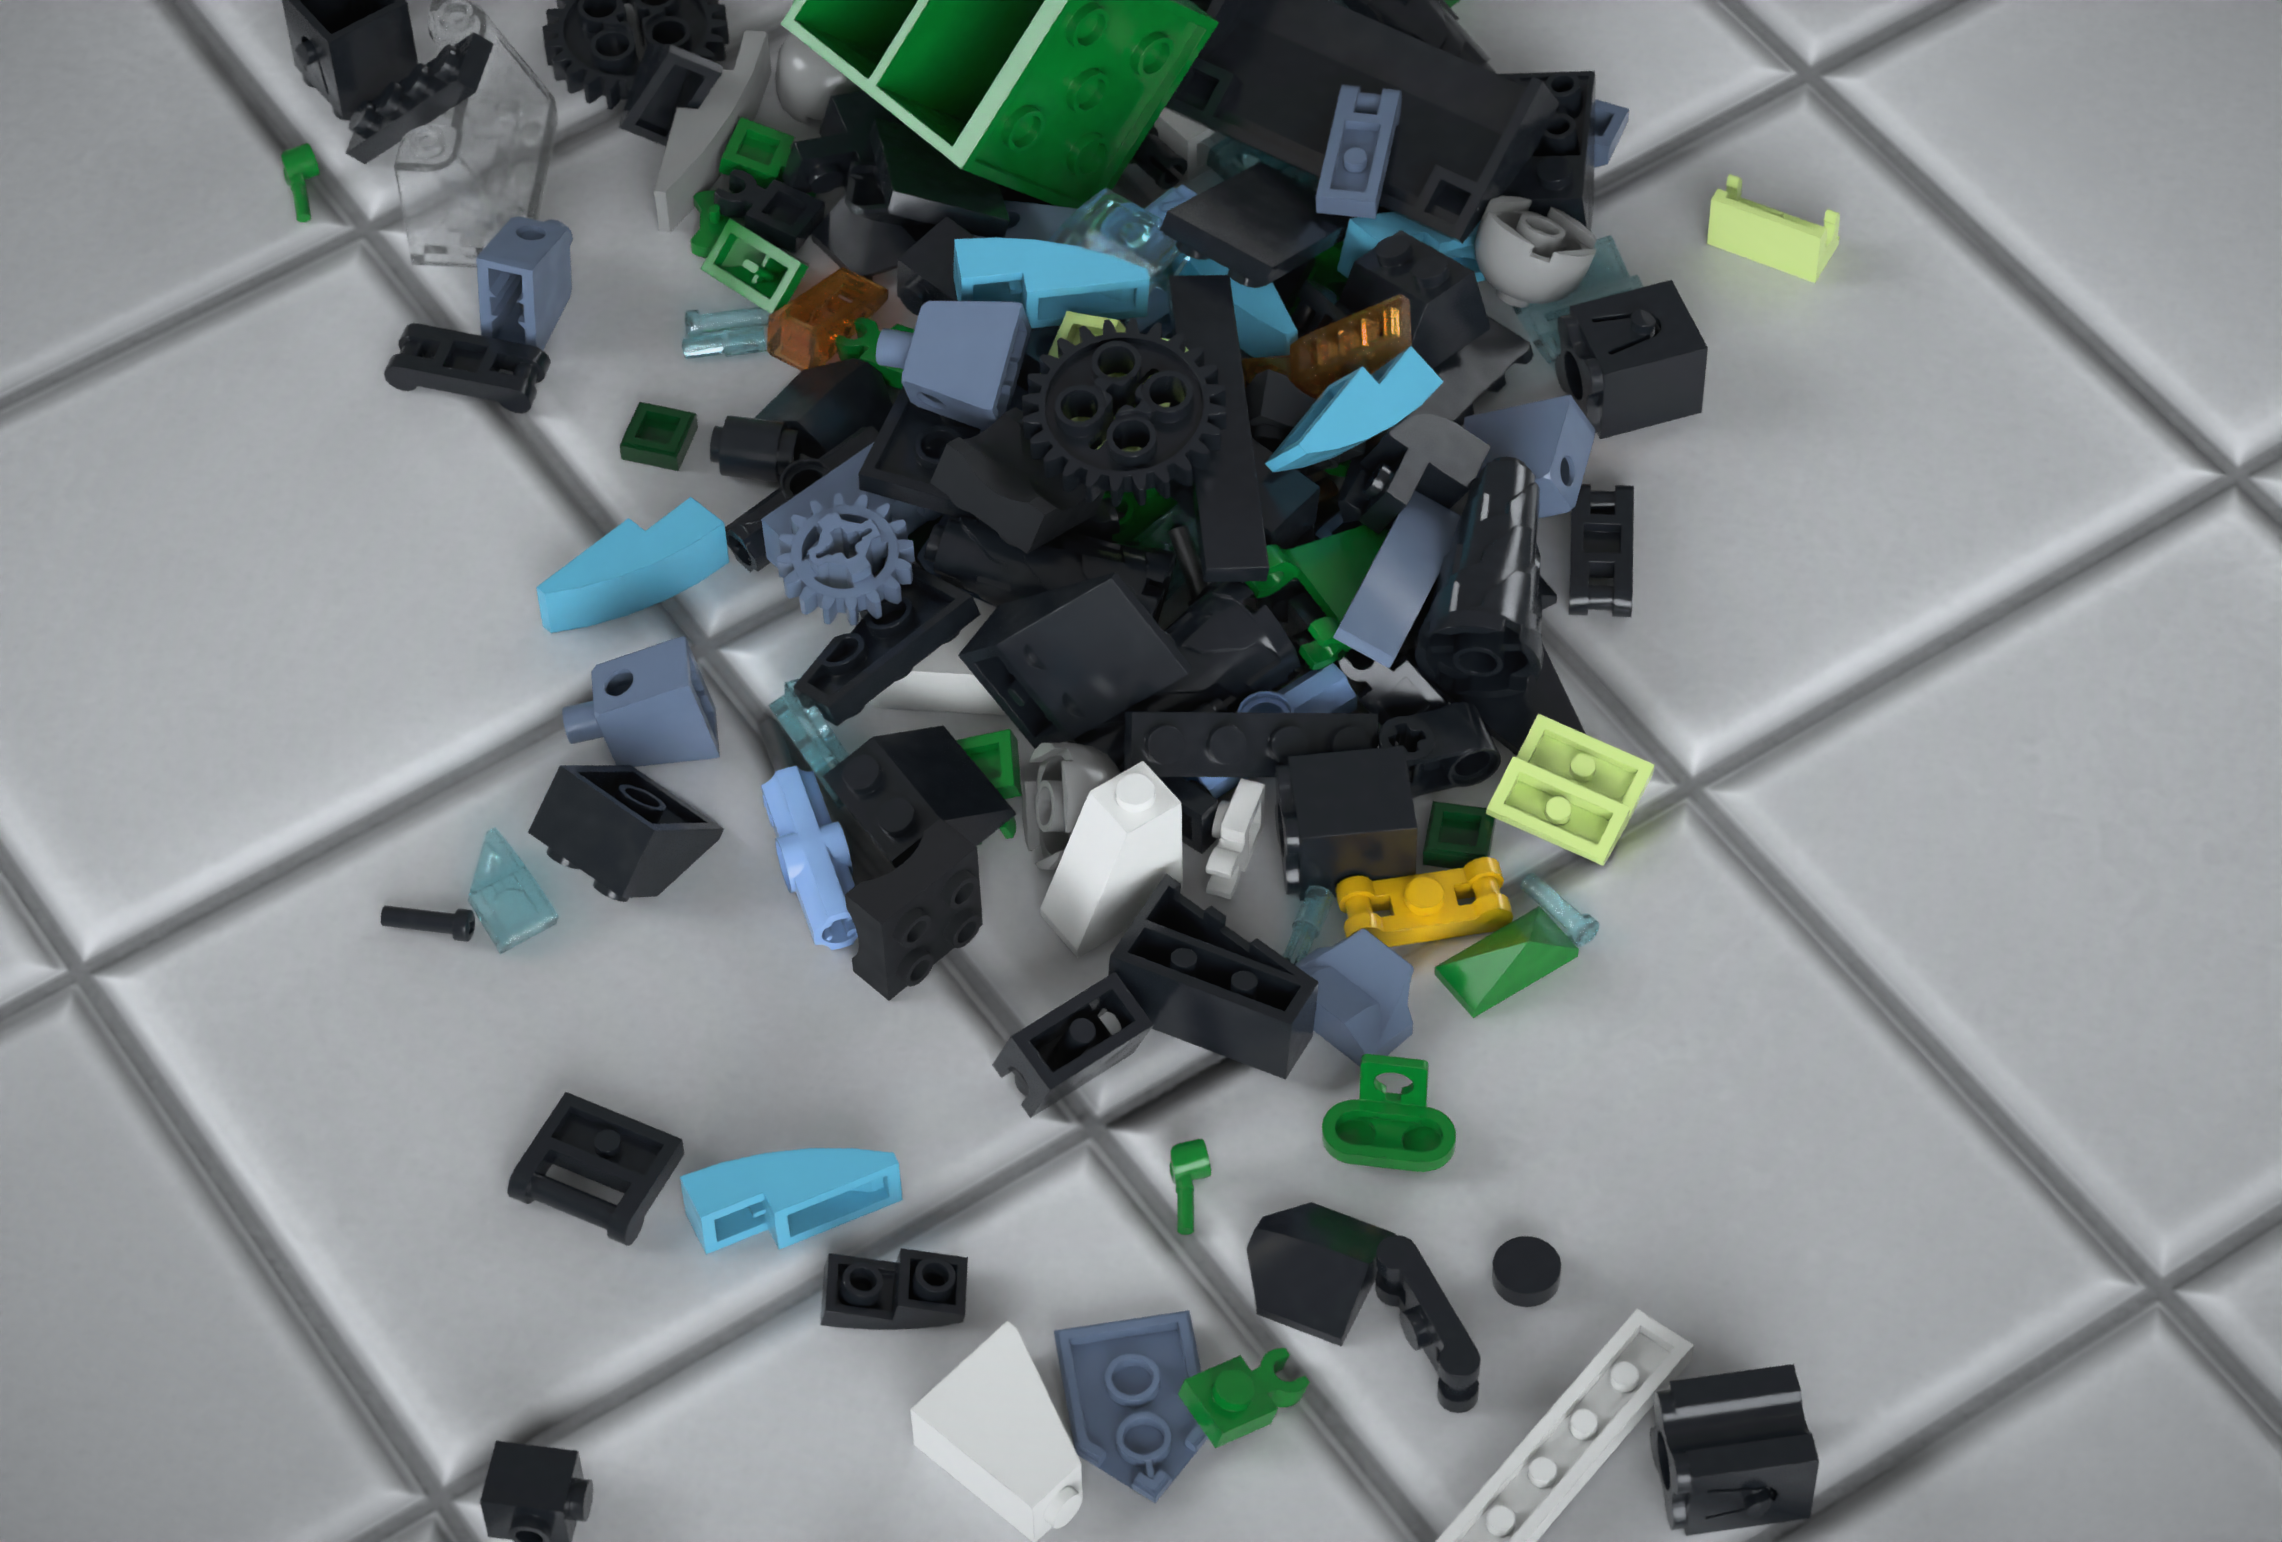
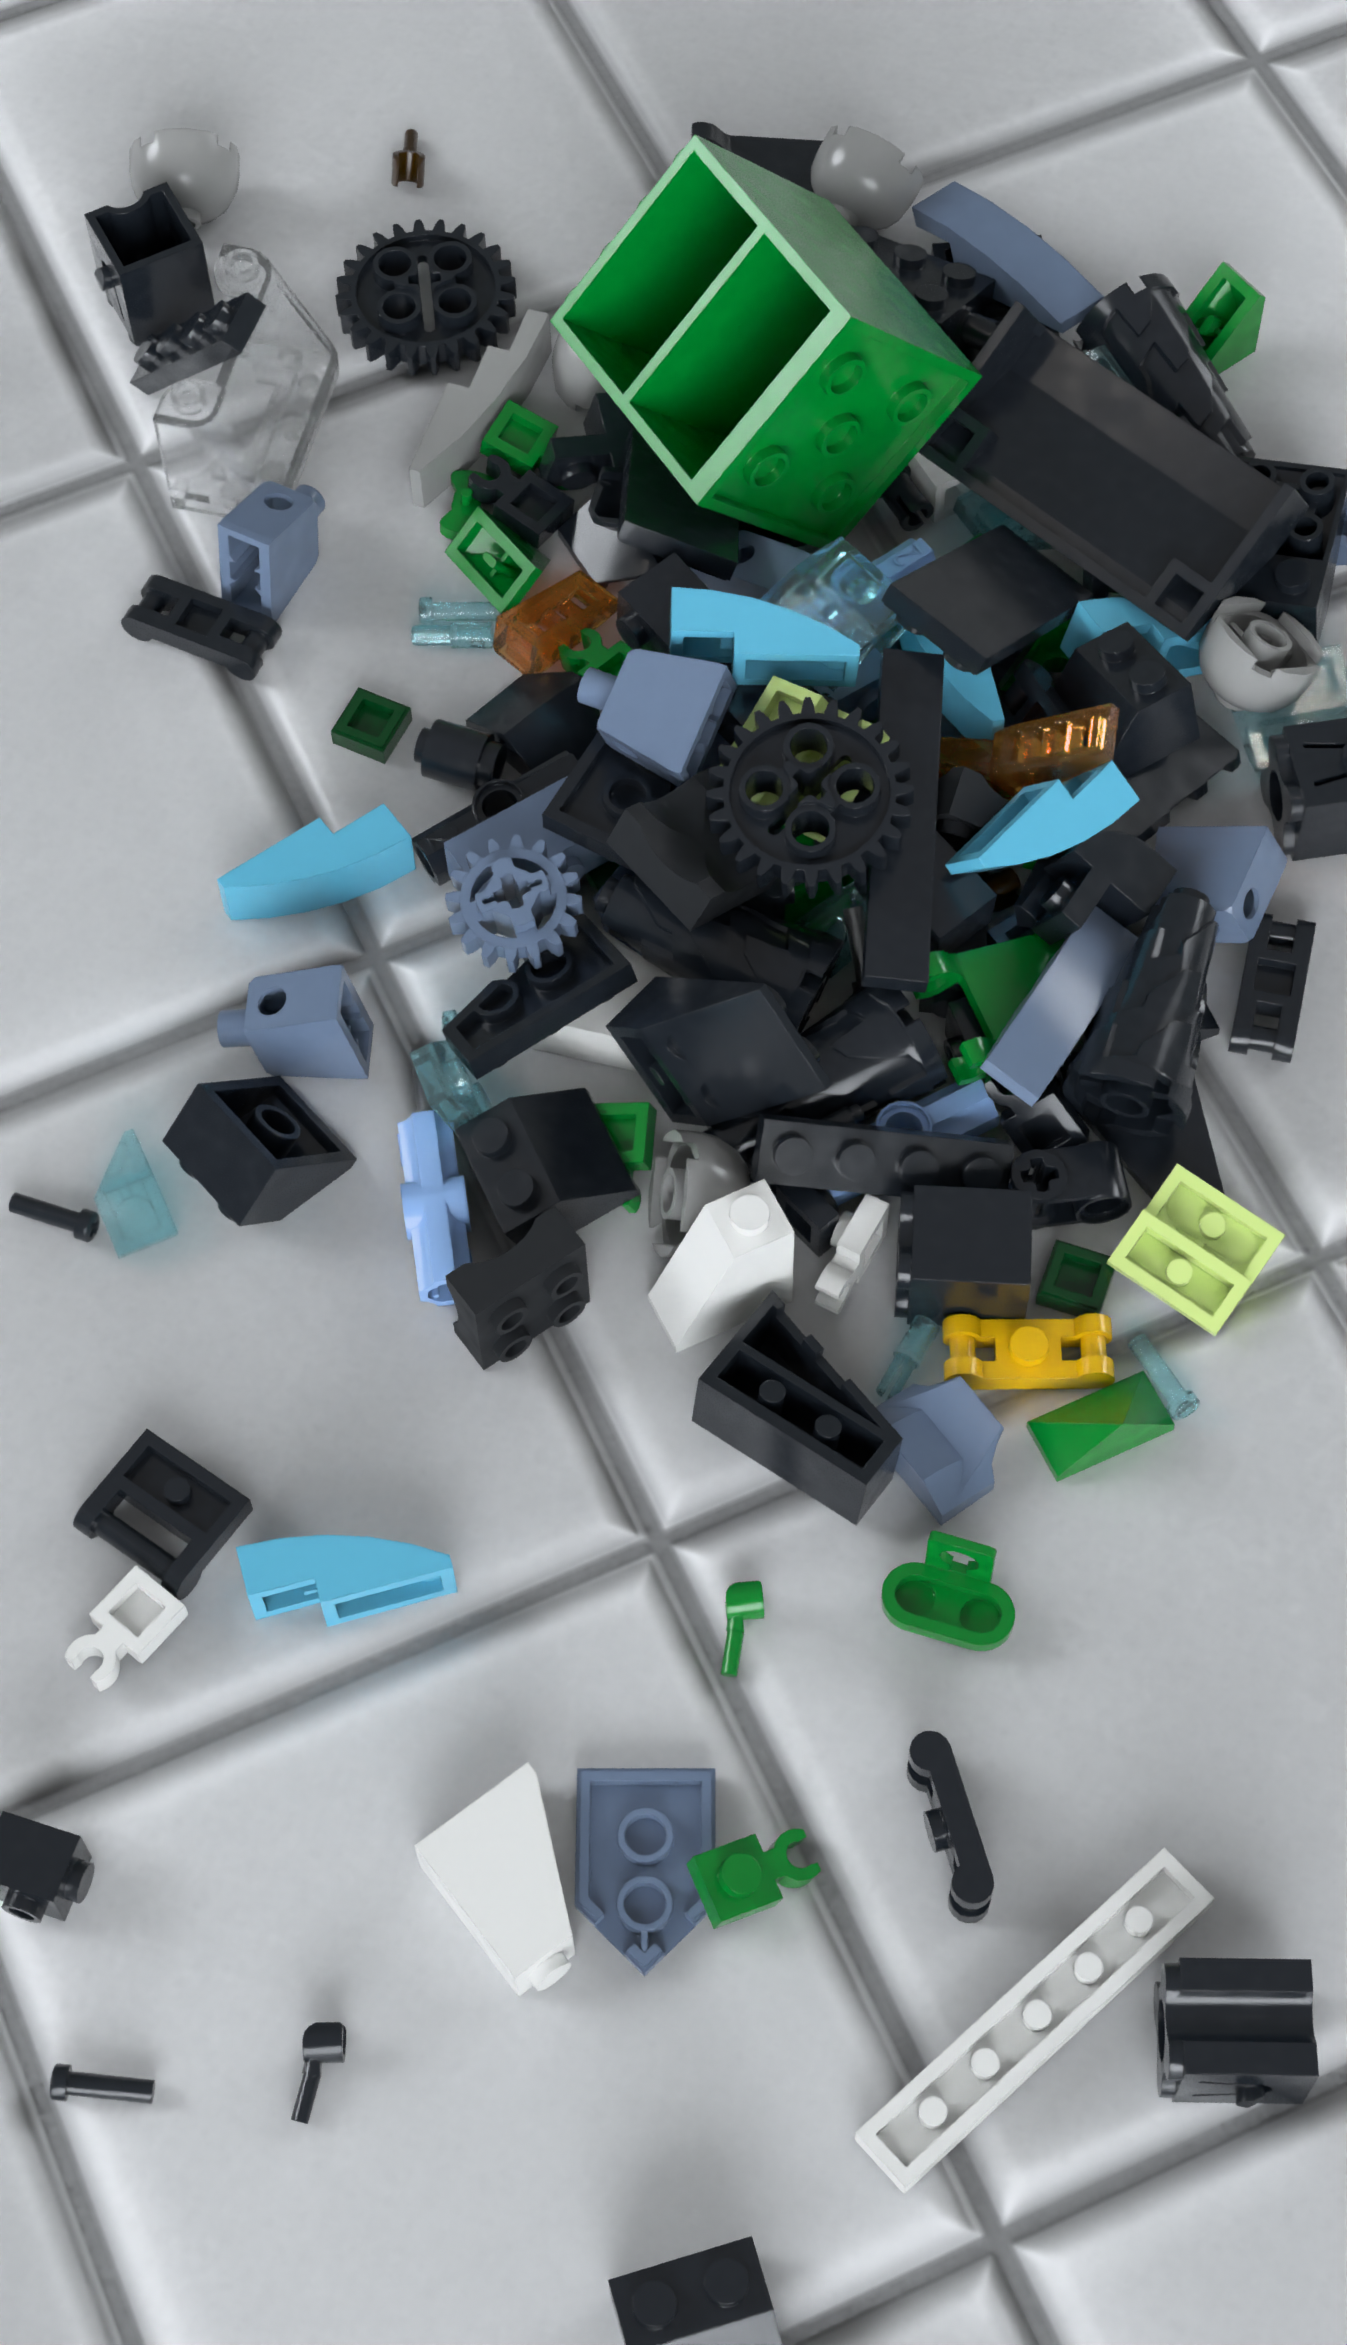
camera: 10 degrees right, 10 degrees up
(299, 166) = (82, 391): green hand -> none
(581, 1266) = (130, 1620): none -> white plate
(663, 82) = (437, 358): black slope -> none
(885, 1295) = (429, 1698): black slope -> none
(1073, 1044) = (650, 1459): black brick -> none
(1313, 1269) = (850, 1738): black slope -> none
(1358, 152) = (1098, 532): sand blue plate -> none
(1526, 1271) = (1060, 1779): black tile -> none

